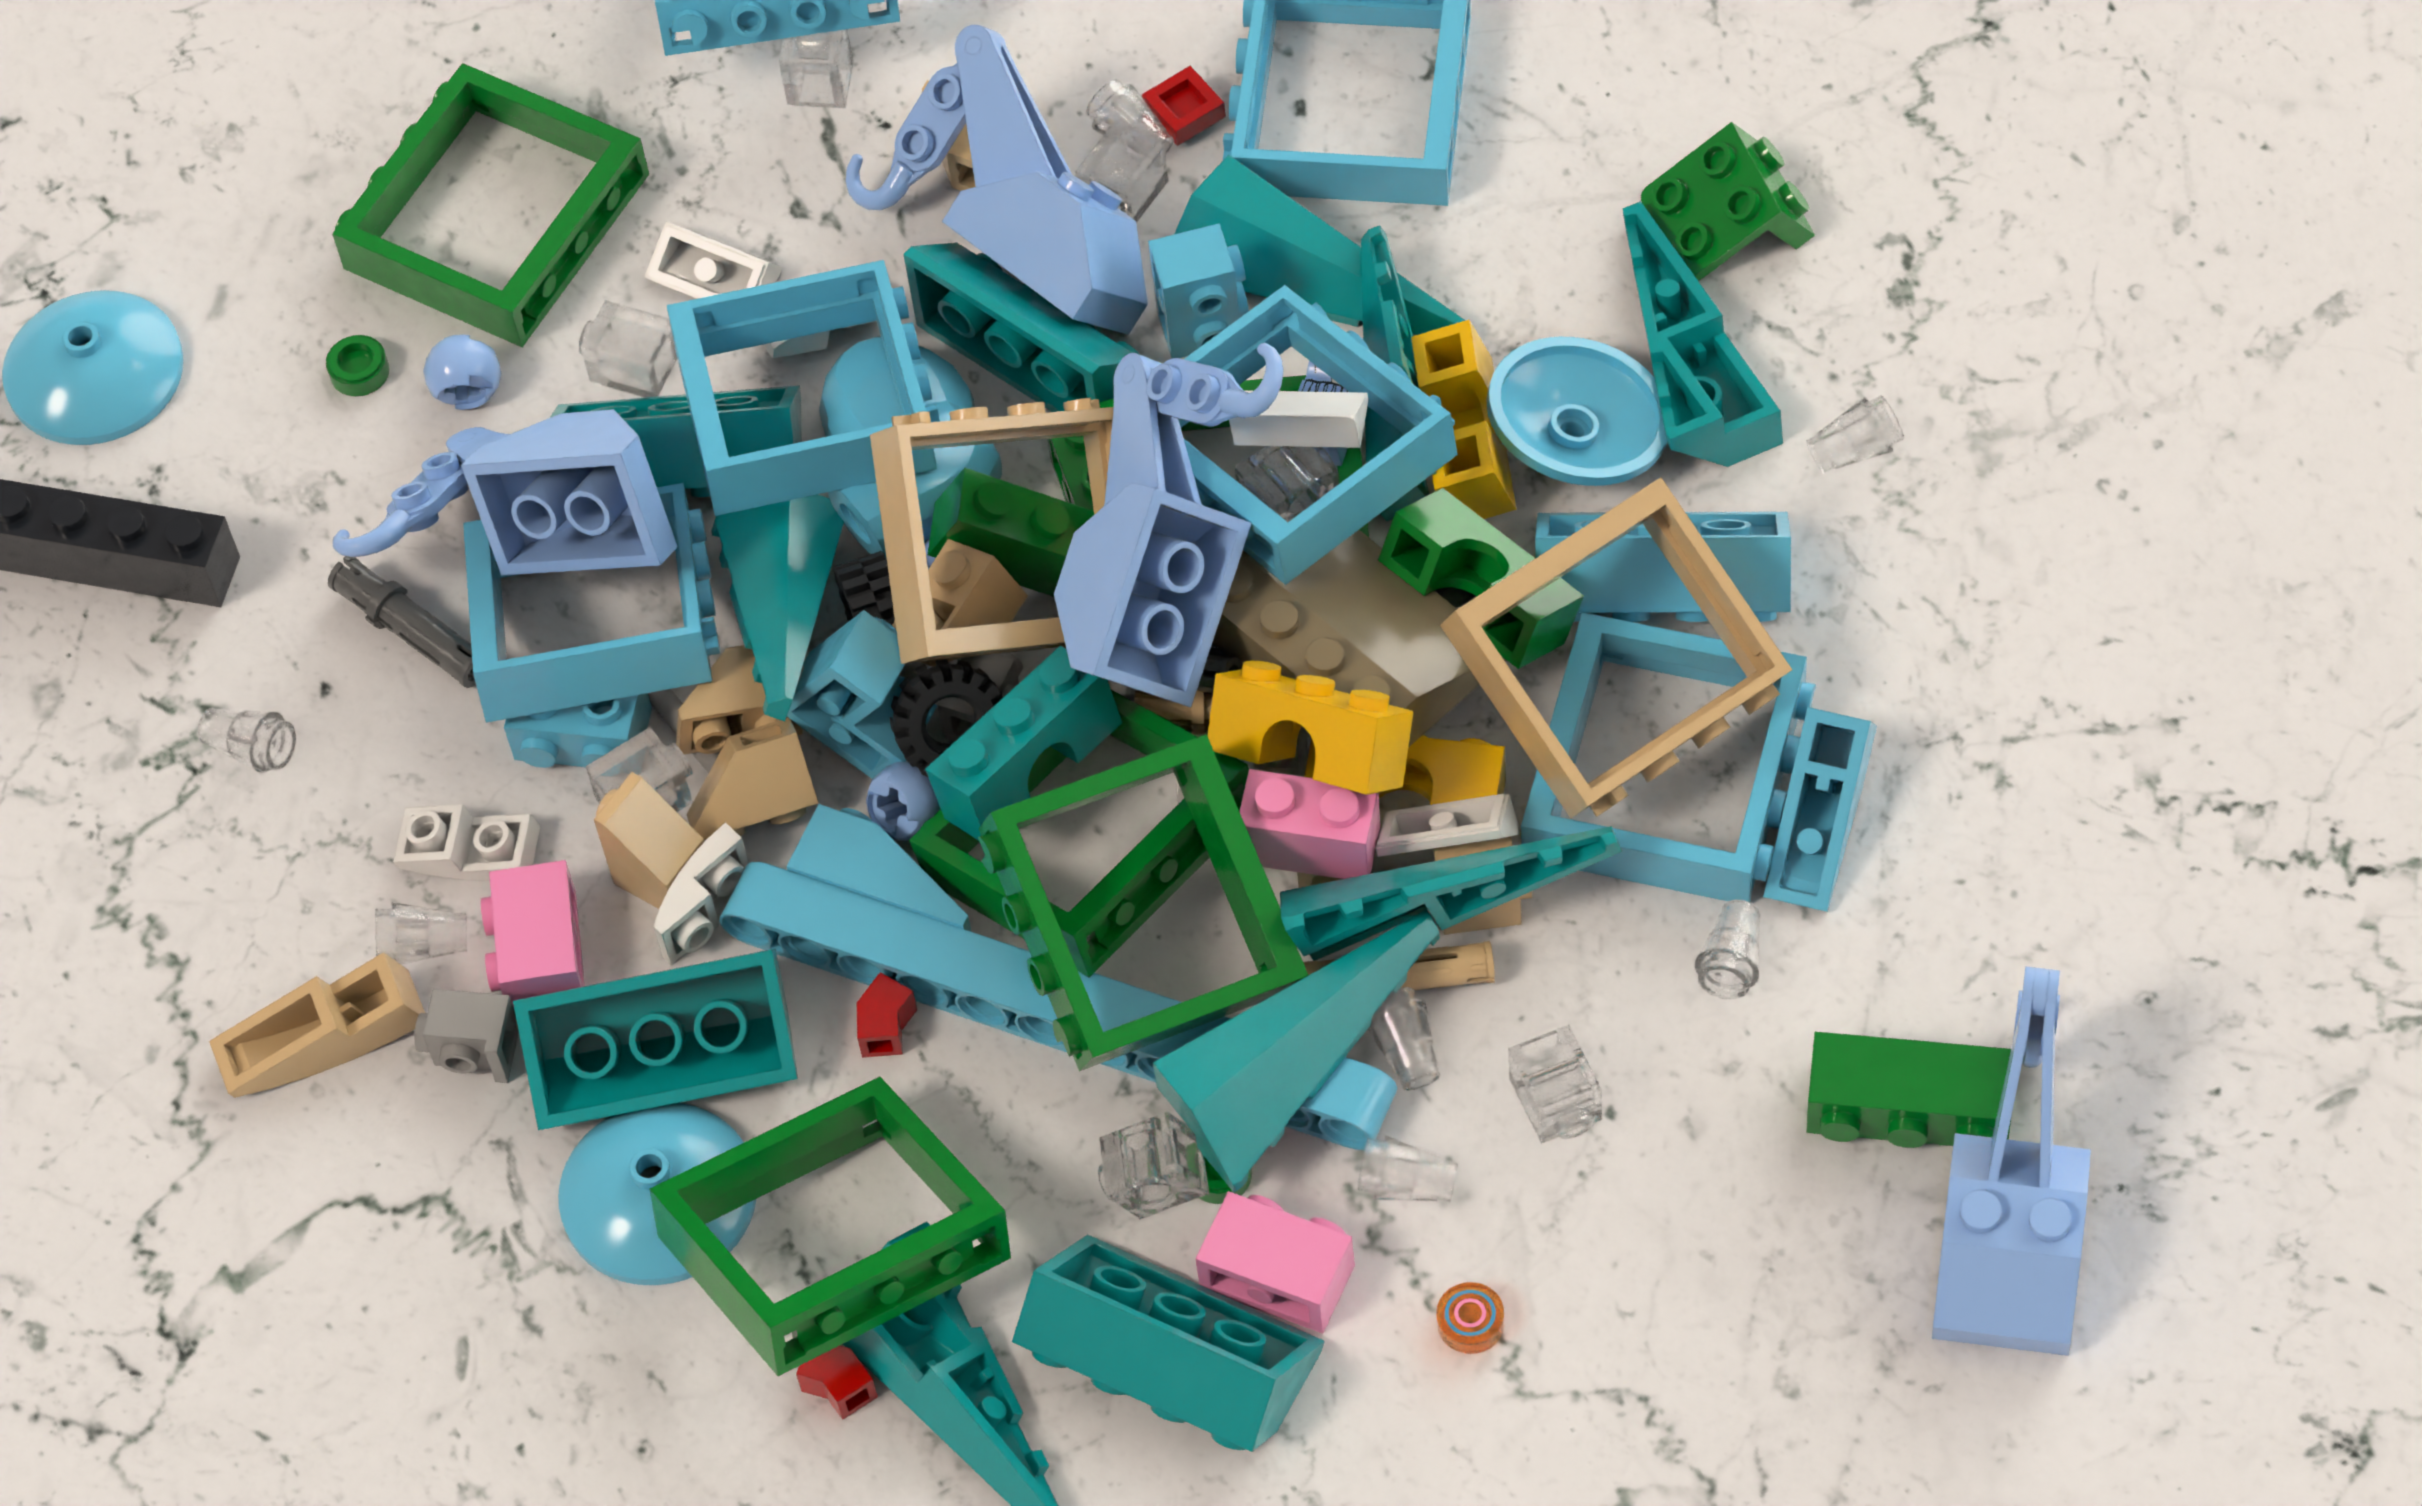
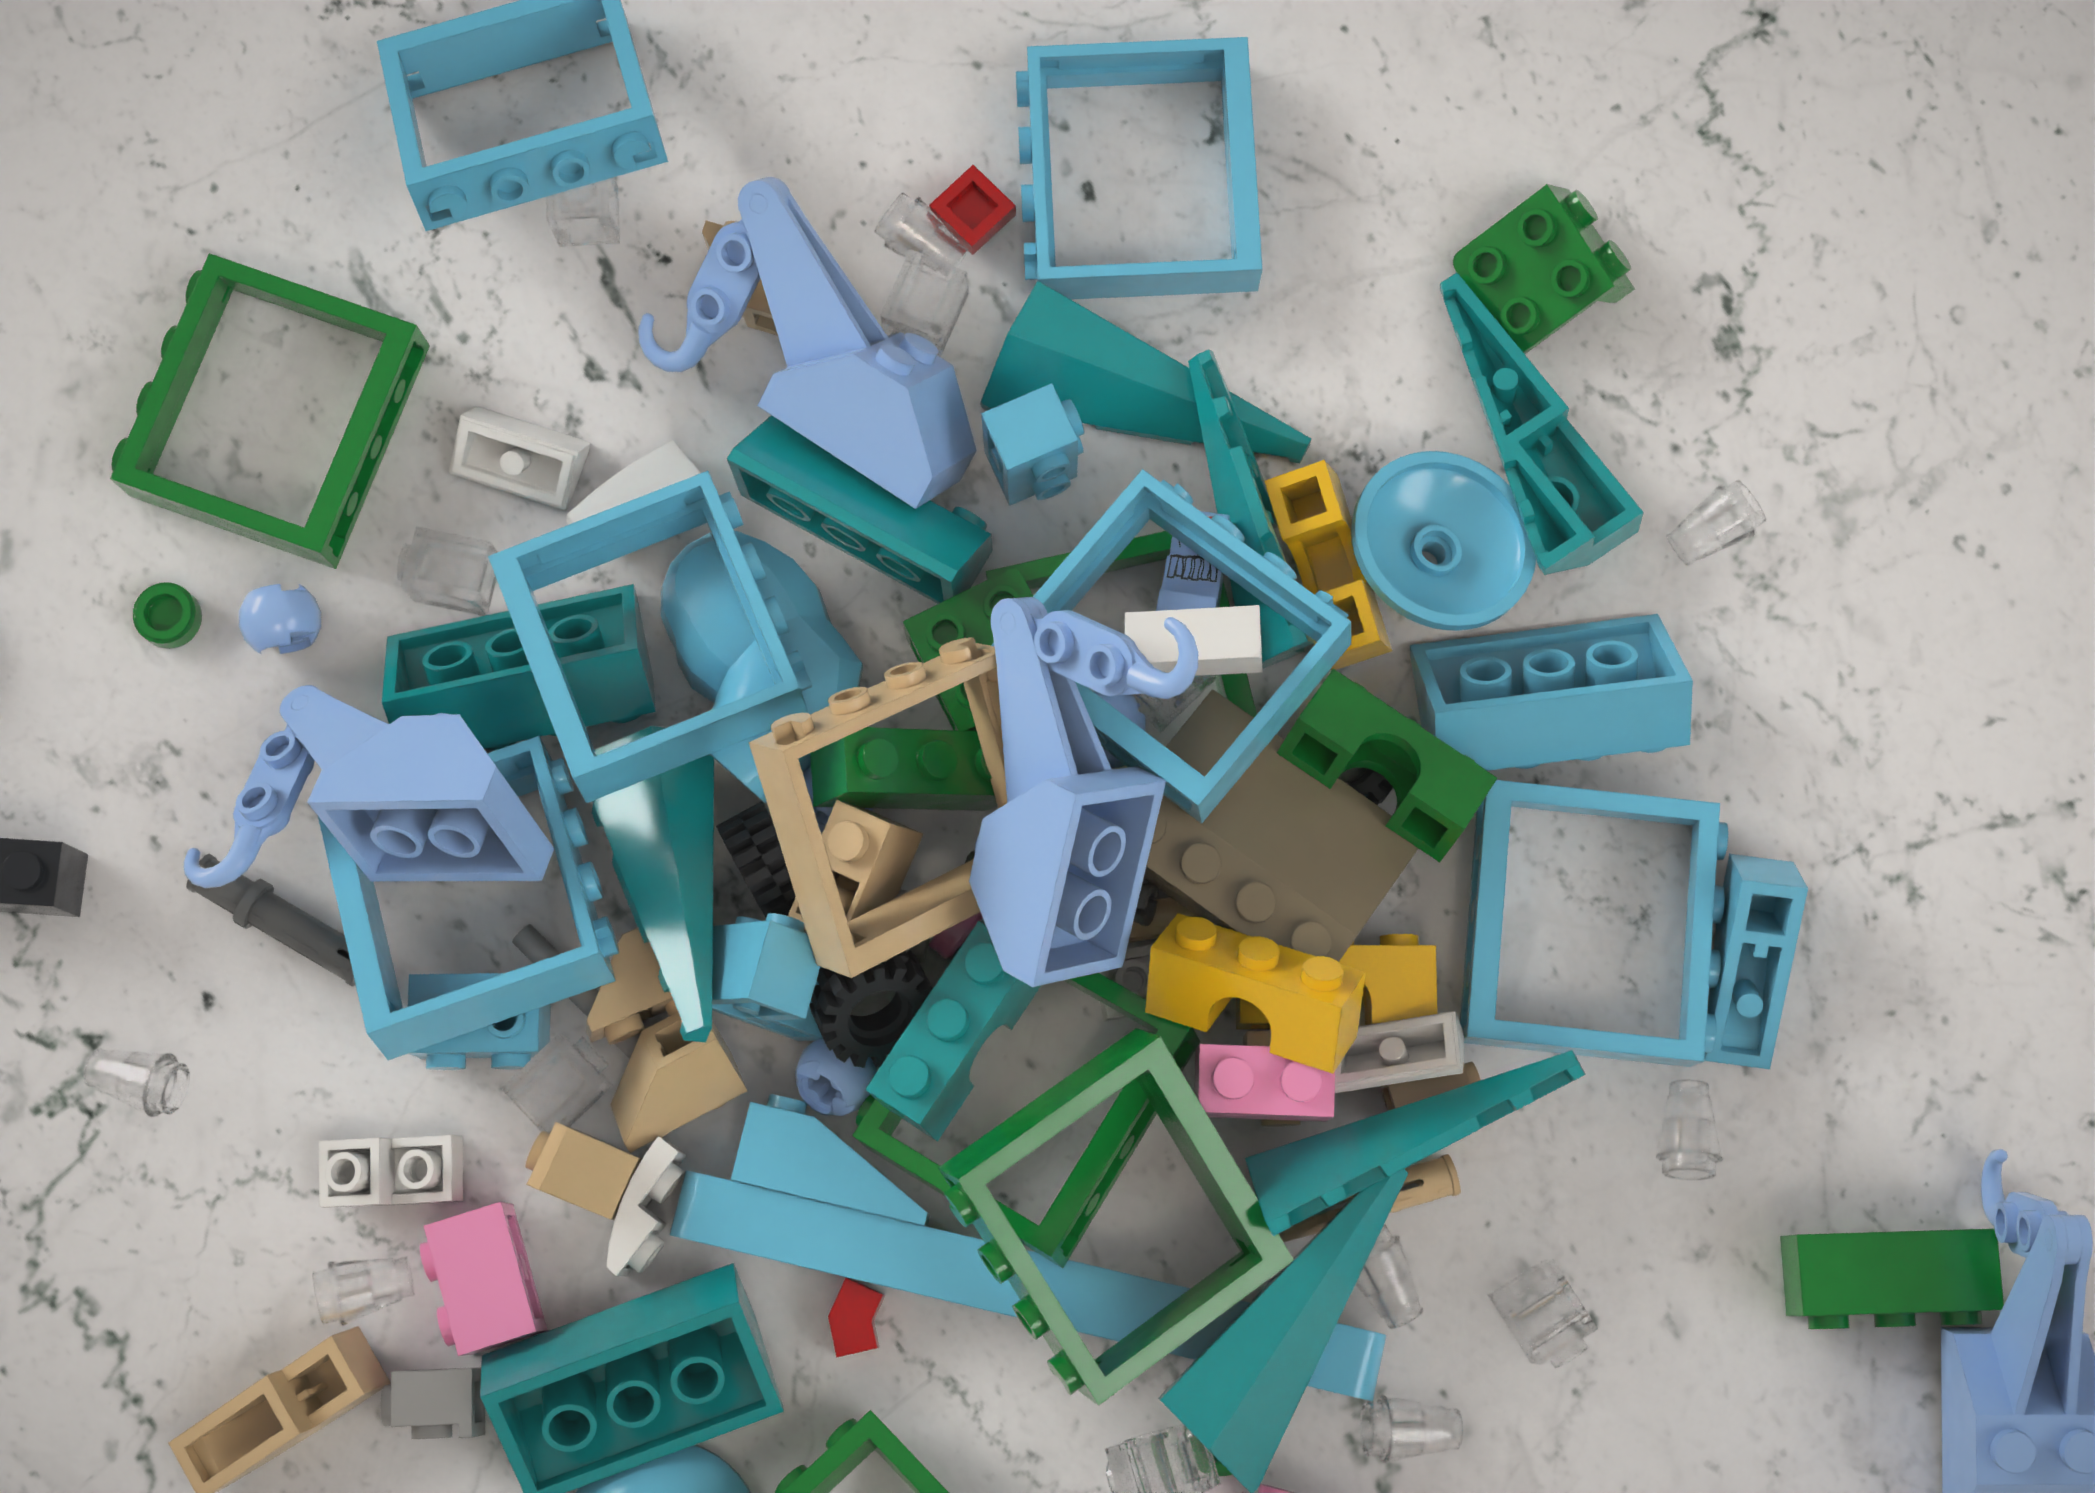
camera: 15 degrees left, 20 degrees up
(1709, 587) = (1482, 776): tan window -> none

